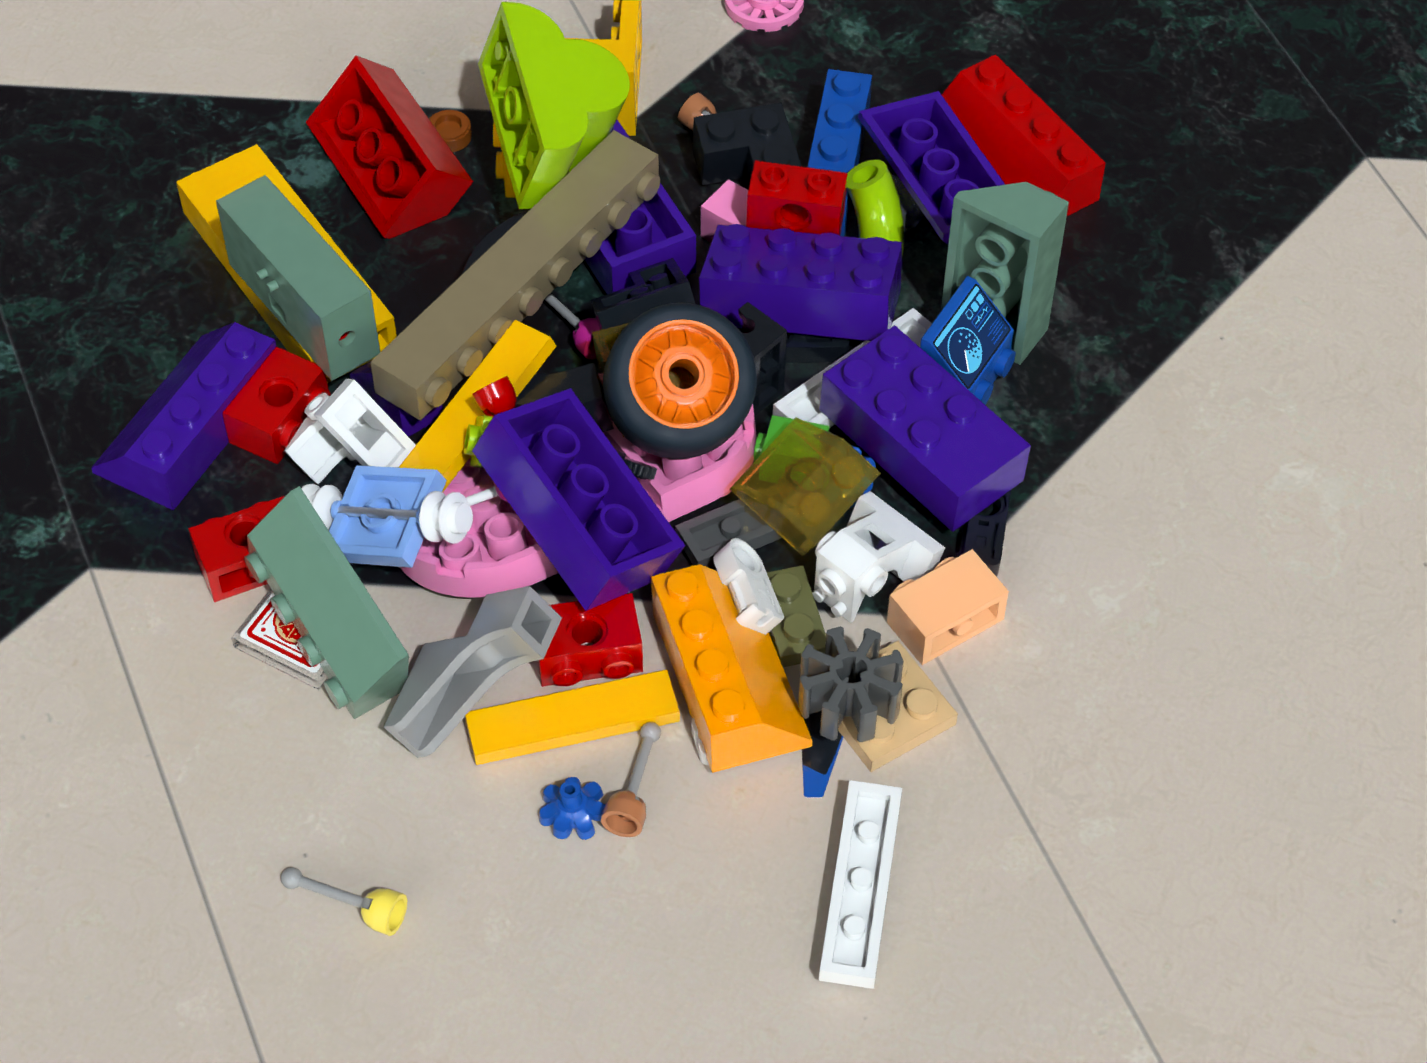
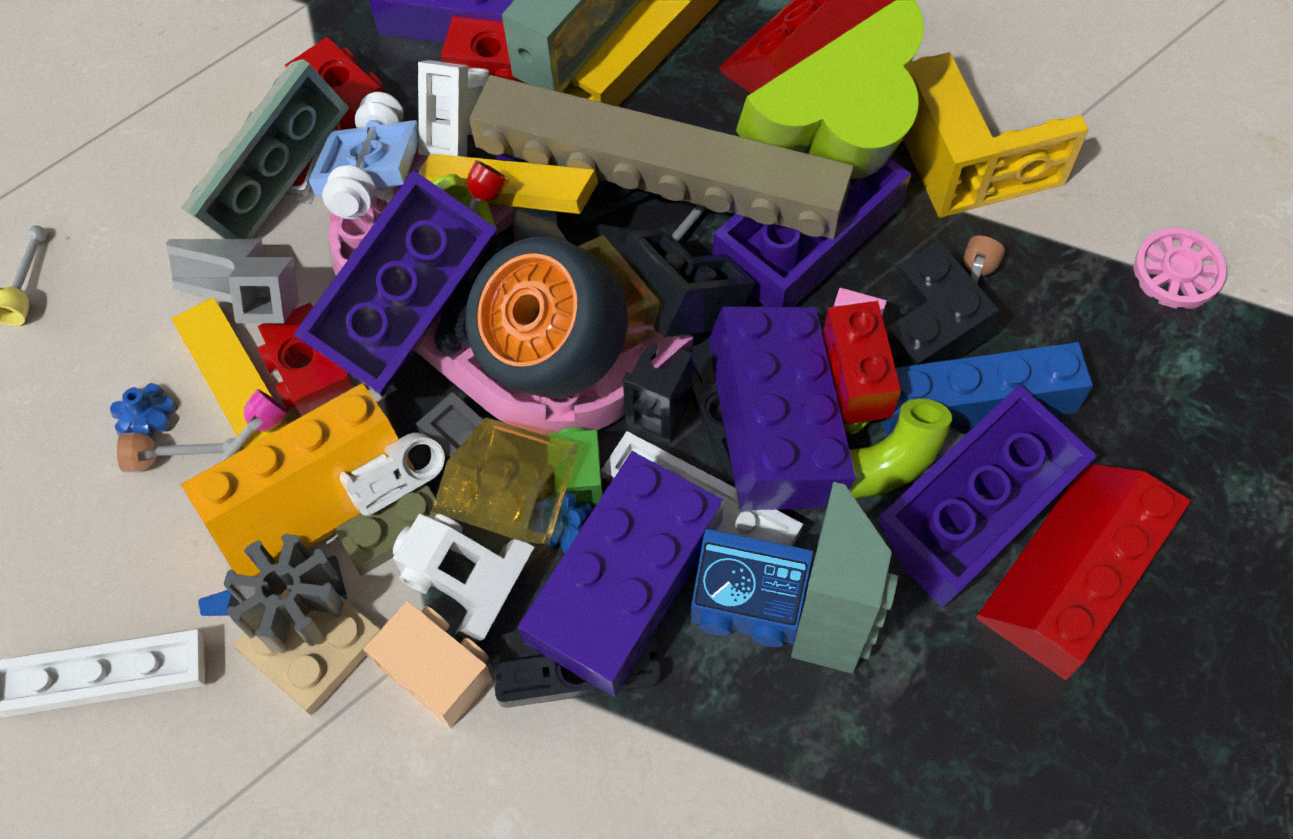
camera: 75 degrees right, 10 degrees up
(638, 681) = (262, 415): none -> dark pink hinge

